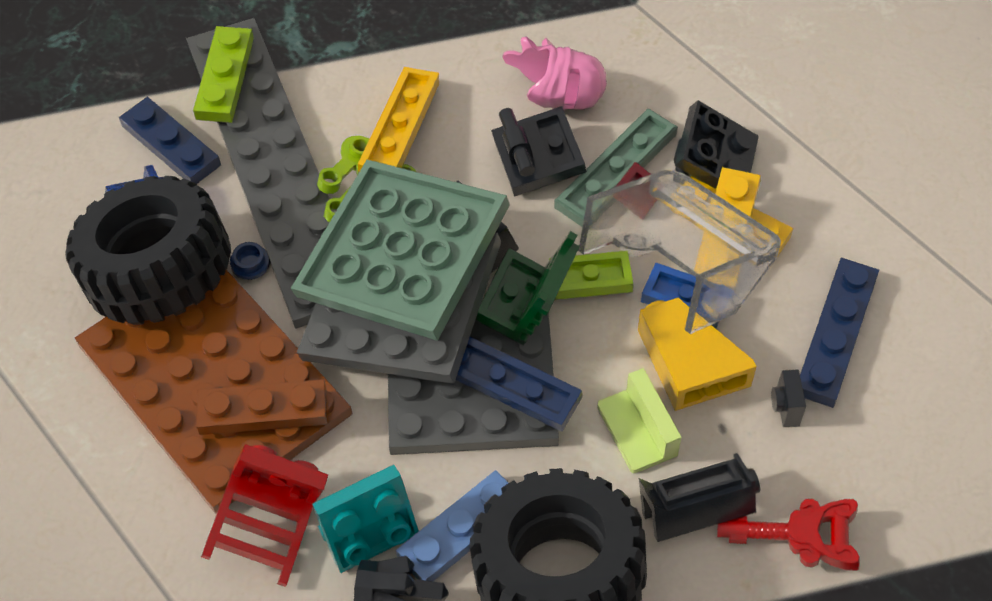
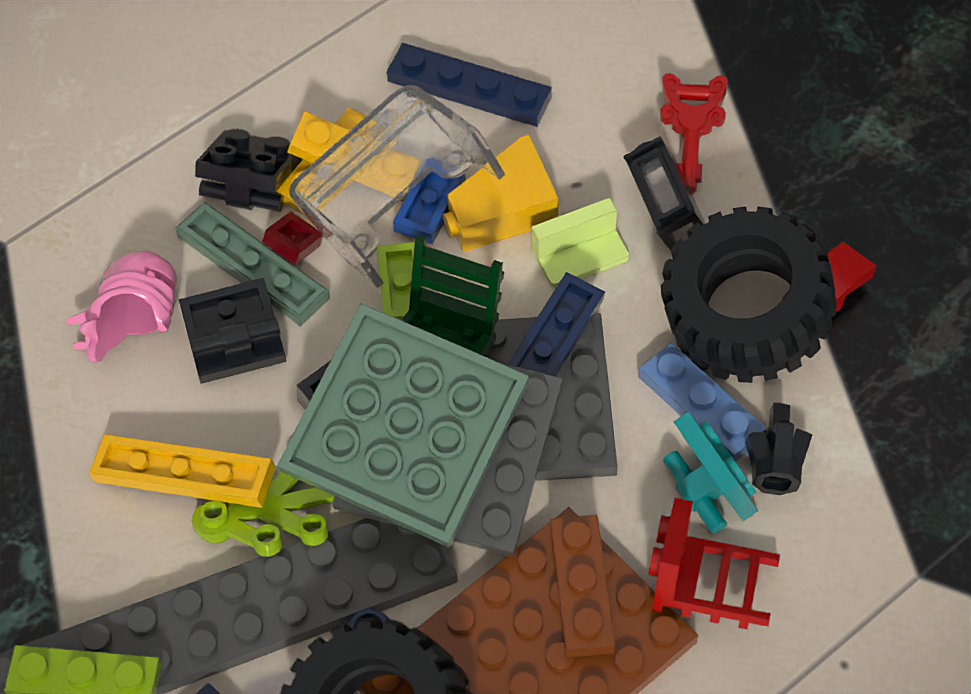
camera: 90 degrees left, 0 degrees up
(789, 398) = (553, 119): black plate -> none

